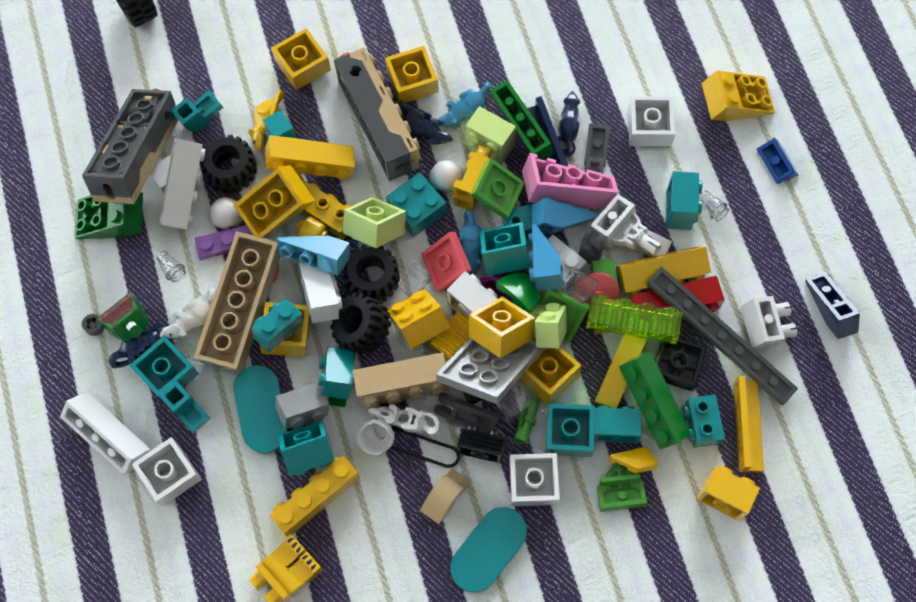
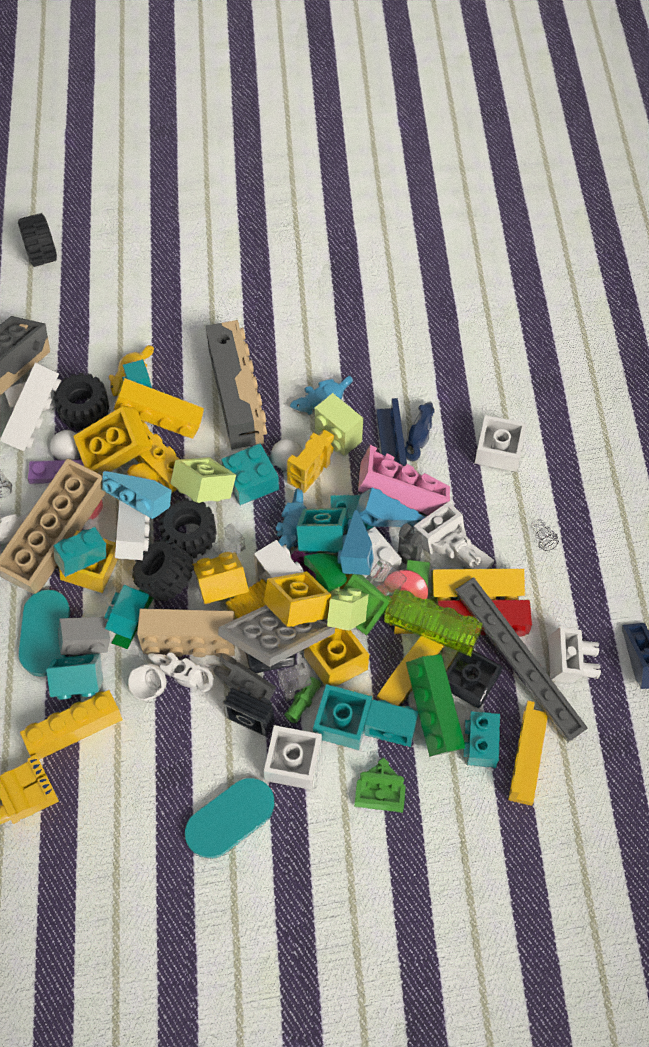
camera: 10 degrees right, 10 degrees down
(196, 115) = (64, 353): teal brick -> none
(301, 58) = (178, 322): yellow brick -> none
(412, 74) = (278, 356): yellow brick -> none
(423, 126) = (276, 403): dark blue animal -> none
(429, 440) = (190, 714): black piece -> none
(444, 495) = (198, 752): tan brick -> none
(446, 261) = (263, 528): coral plate -> none
(497, 188) = (330, 471): bright green tile -> none
(518, 115) = (372, 416): green brick -> none
(597, 146) = (442, 456): dark grey hinge -> none
(635, 460) = (402, 762): yellow tile -> none
(683, 200) = (513, 522): teal brick -> none
(728, 493) = (488, 814): yellow brick -> none
(737, 96) = (593, 438): yellow slope -> none
(777, 161) = (620, 507): blue slope -> none

